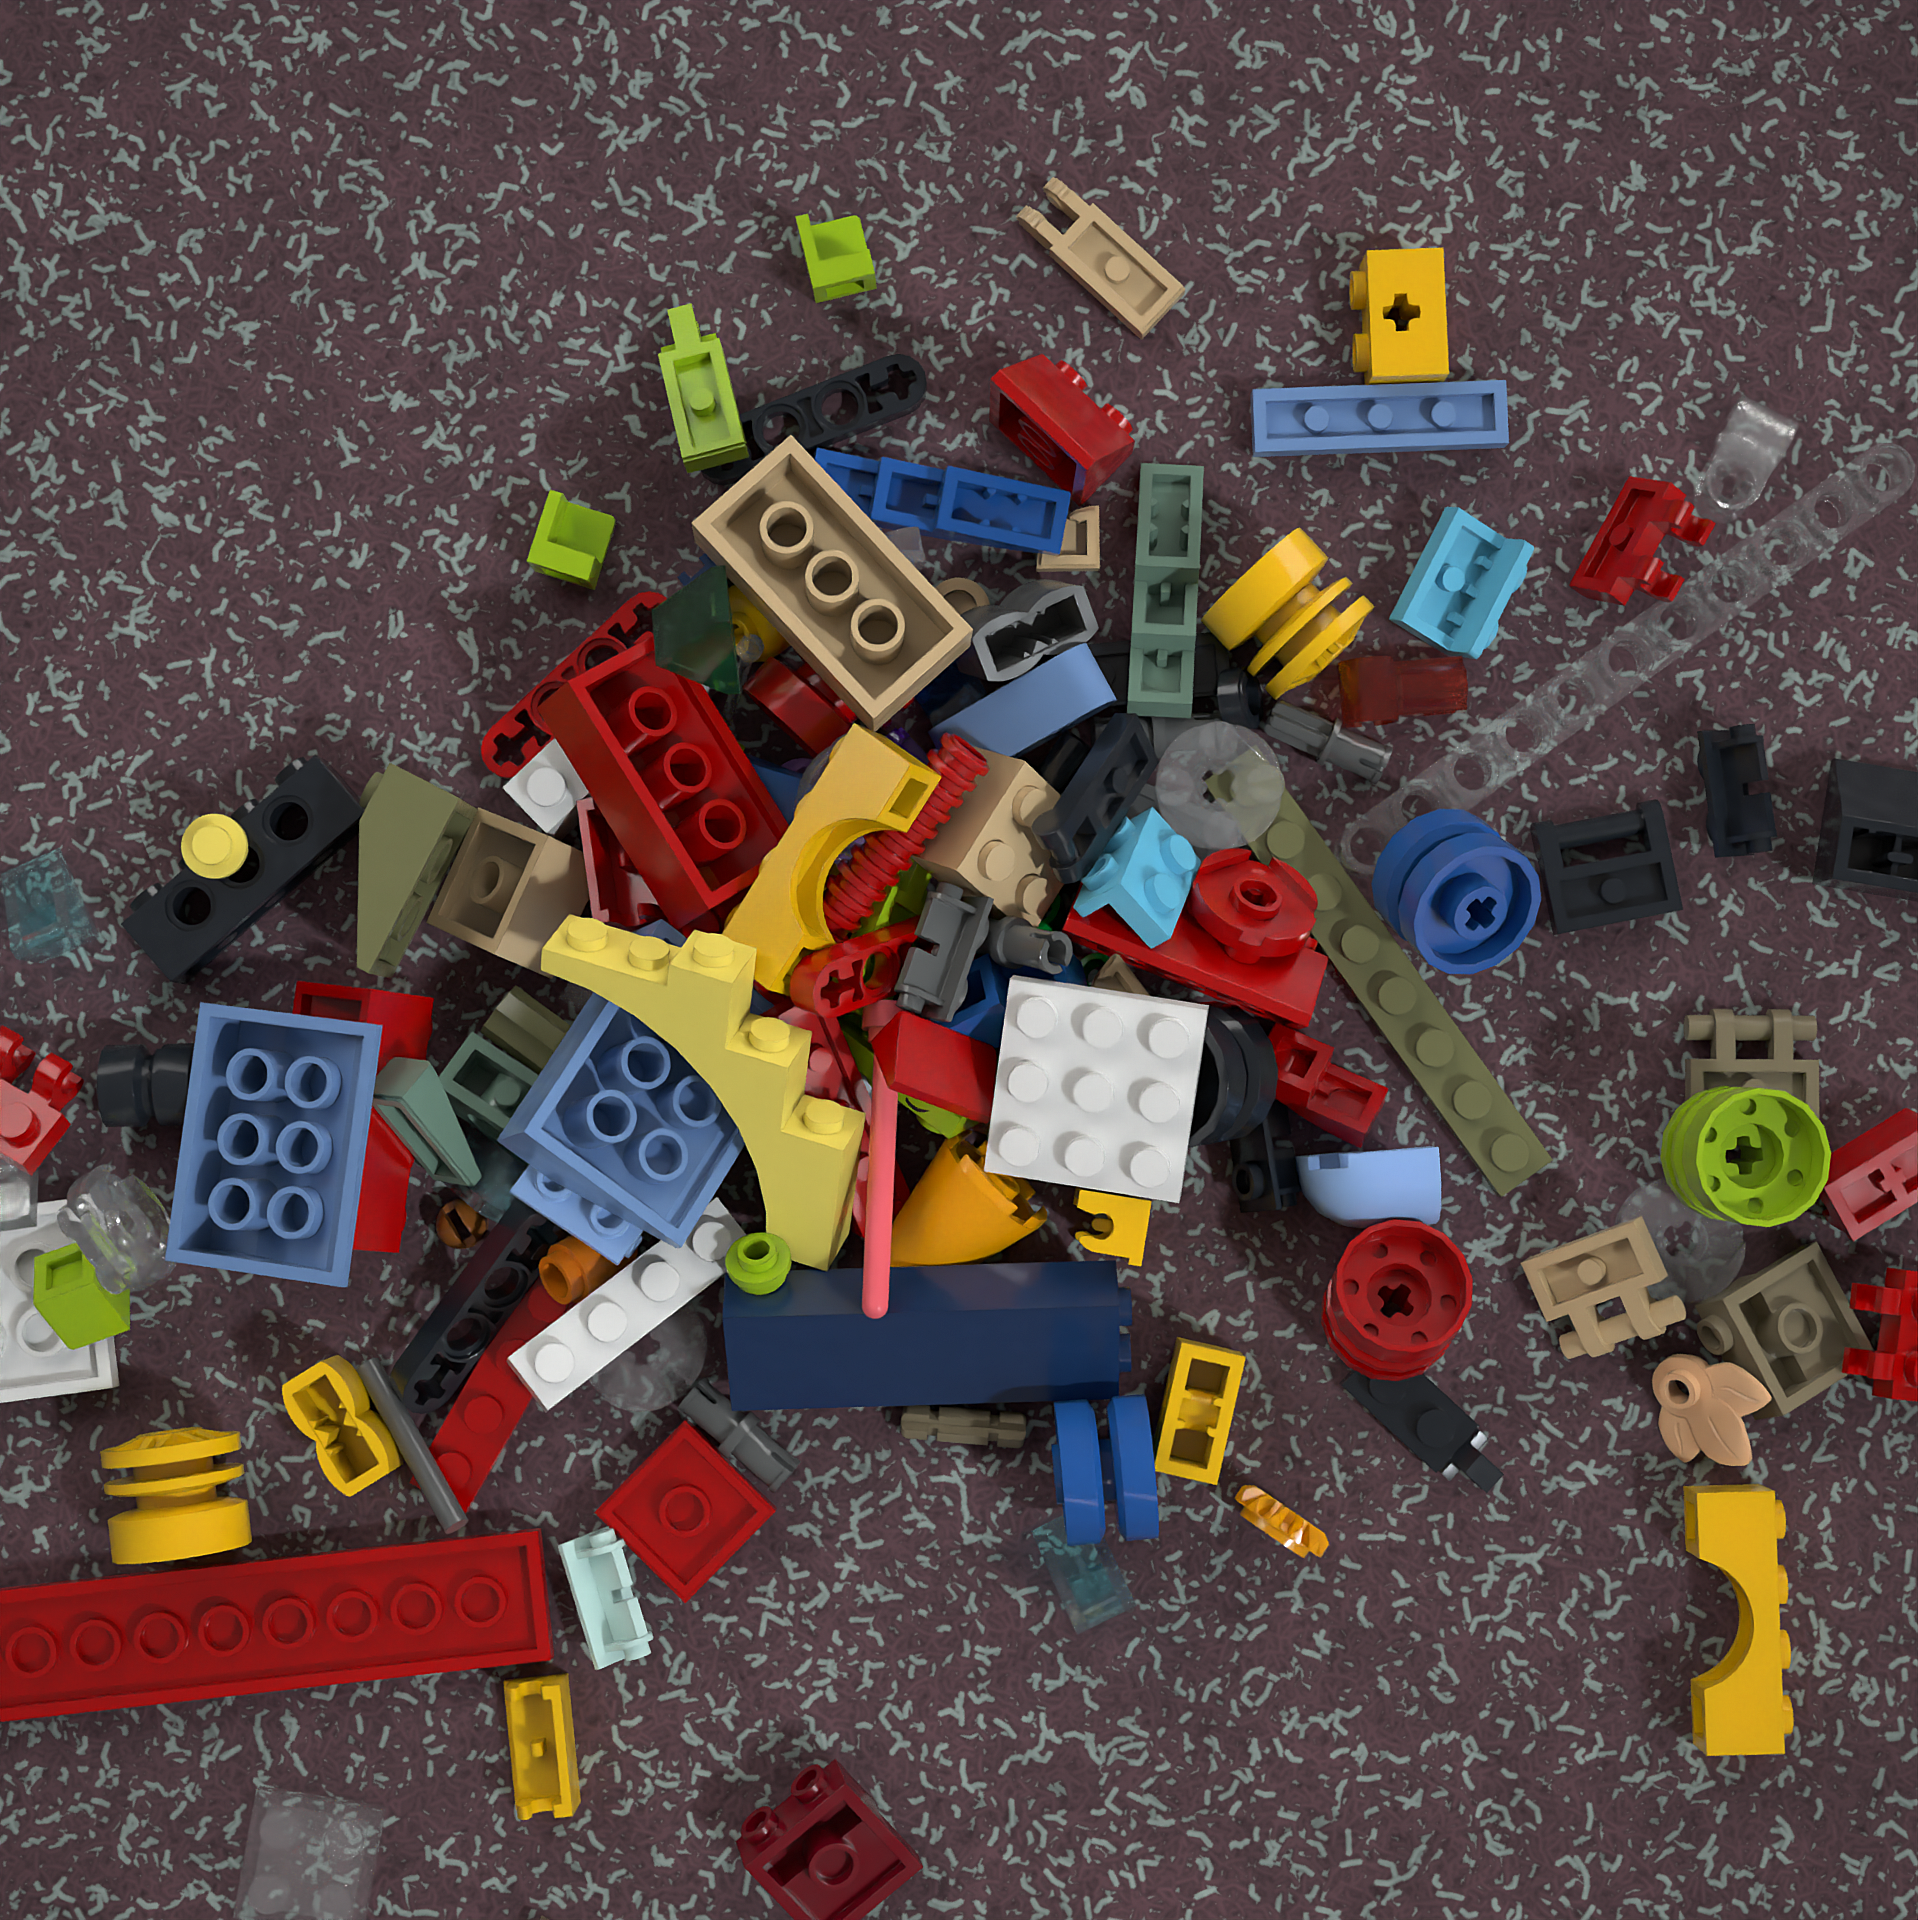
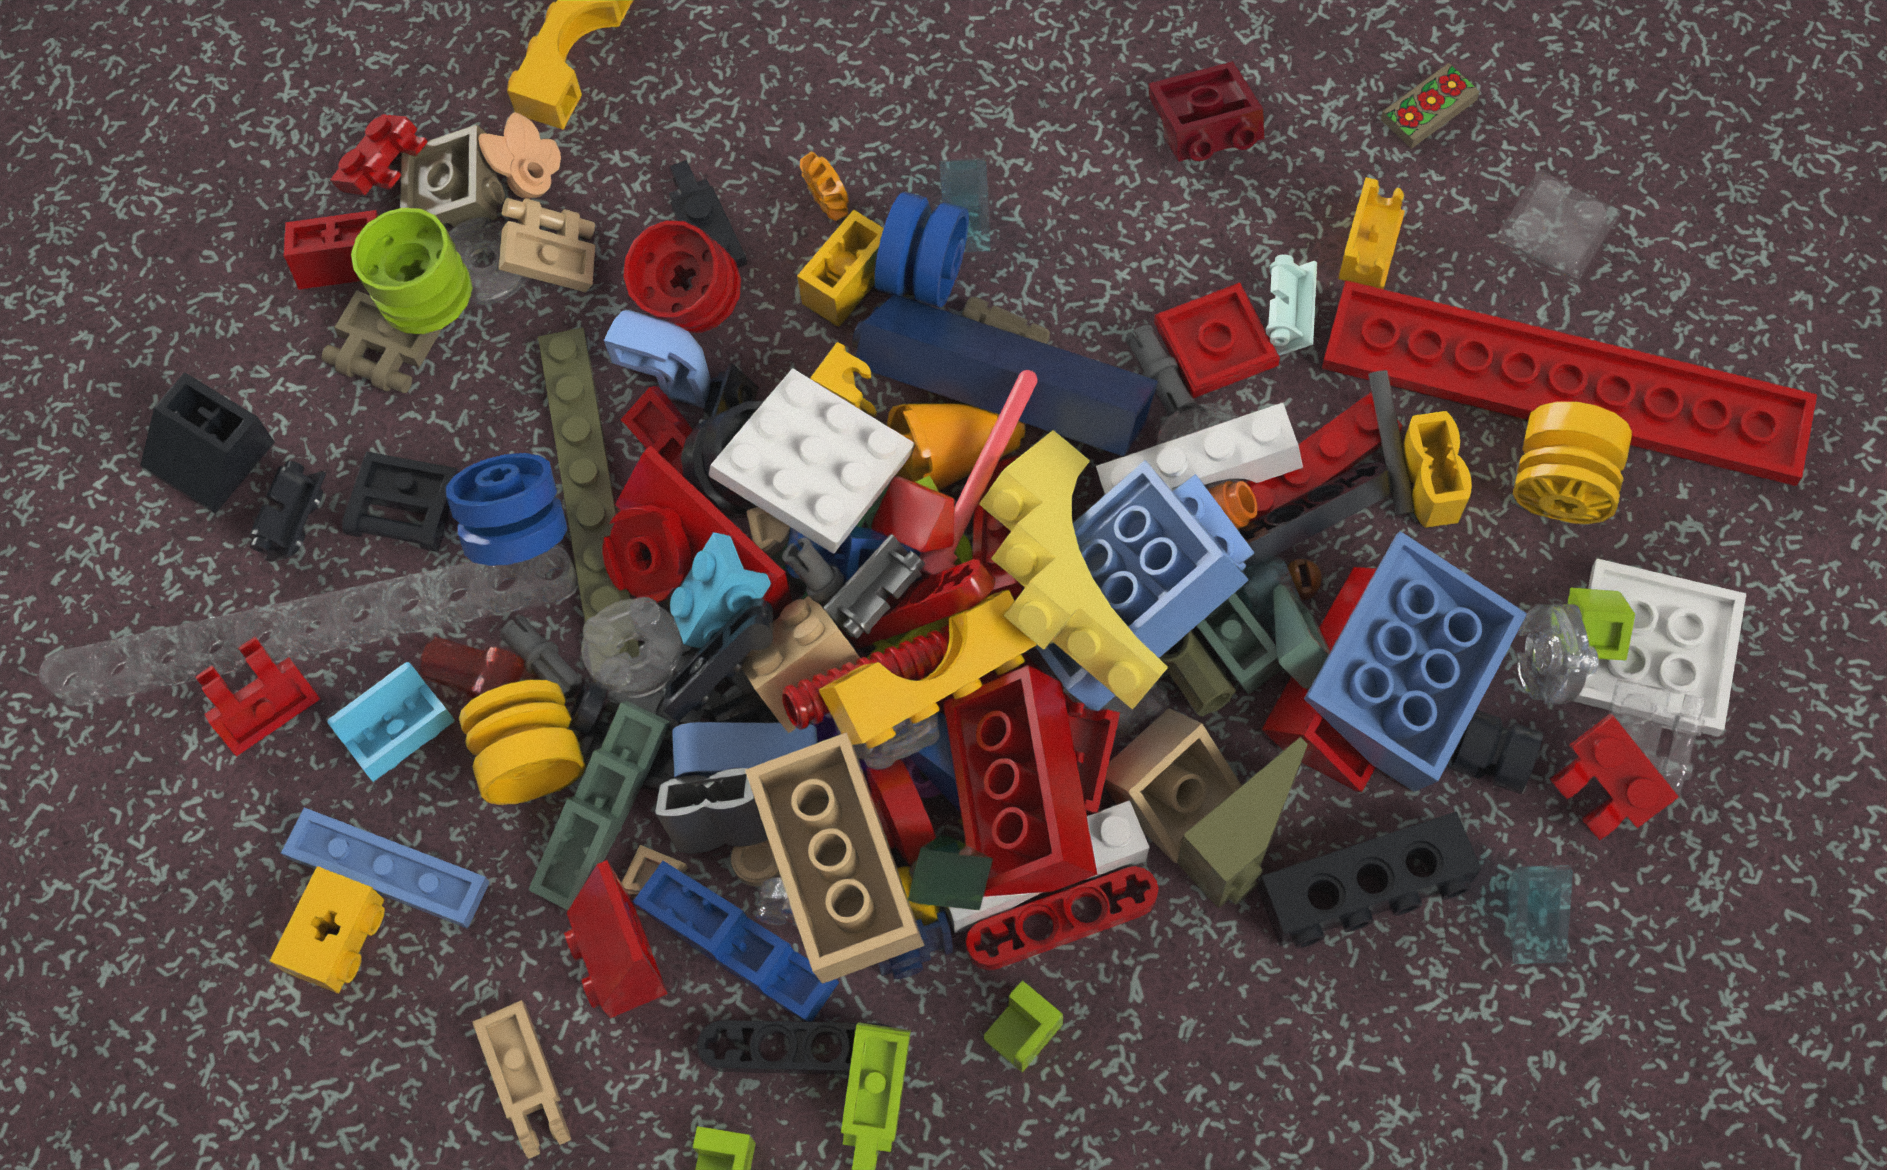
camera: 155 degrees left, 20 degrees down
(214, 846) = (1386, 889): light yellow plate -> none
(758, 1275) = (1107, 437): lime plate -> none
(1744, 455) = (150, 729): clear piece -> none

